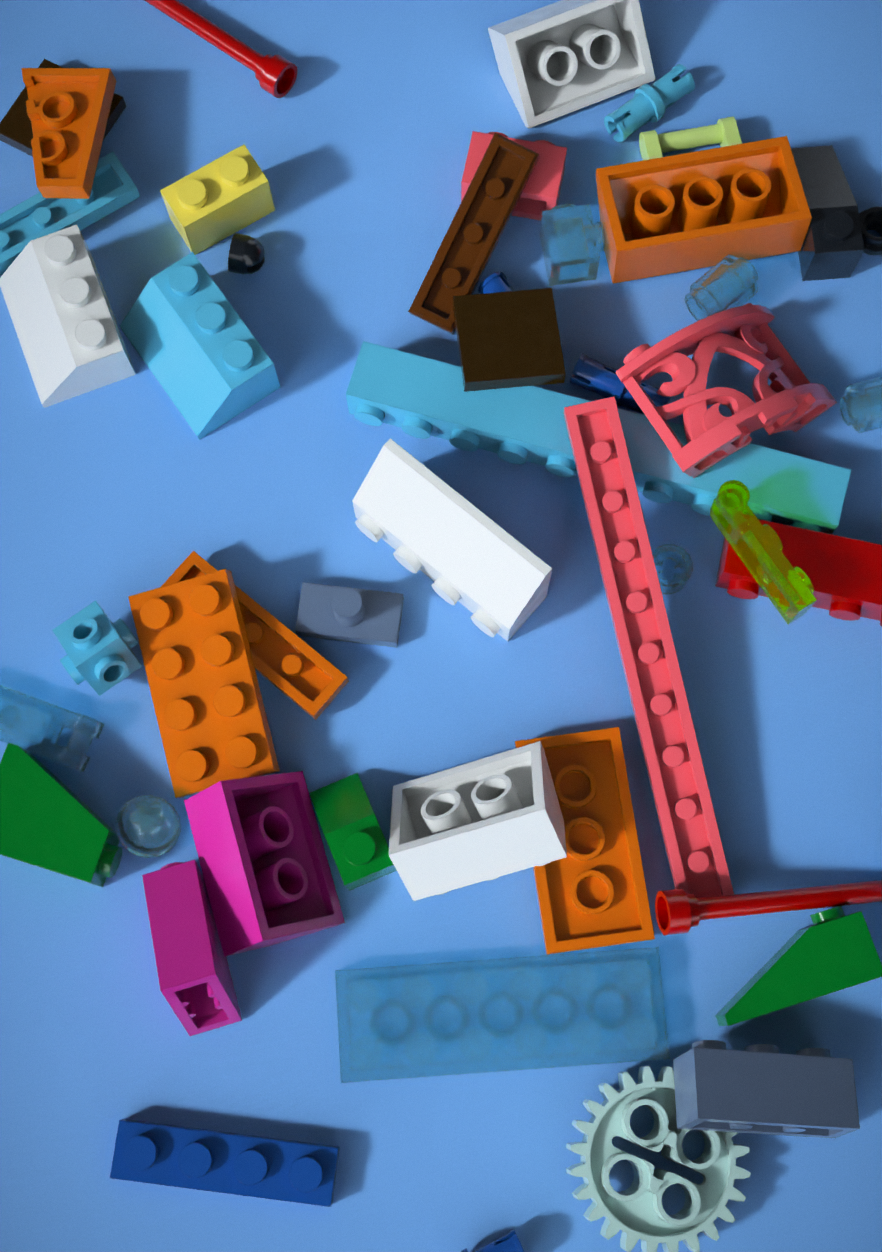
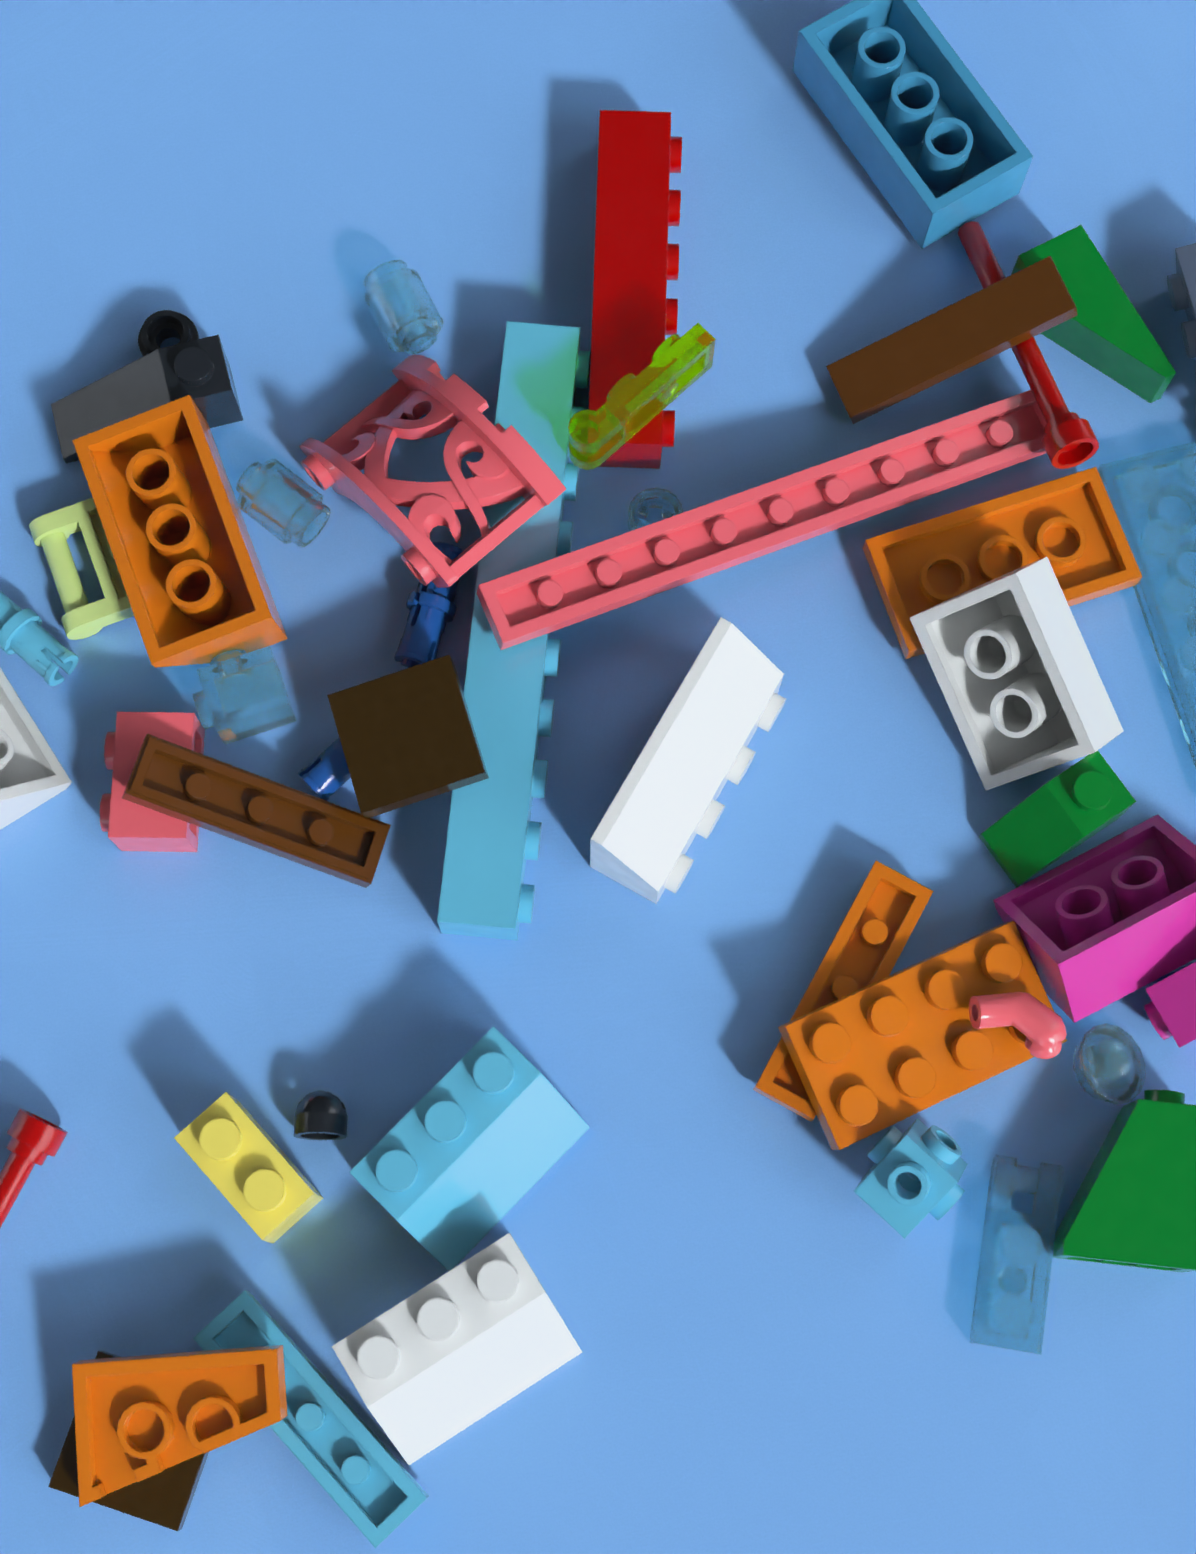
camera: 105 degrees left, 0 degrees up
(192, 756) = (1034, 1019): none -> coral arm
(349, 614) = (789, 882): sand blue tile -> none
(790, 839) = (952, 340): none -> reddish brown tile

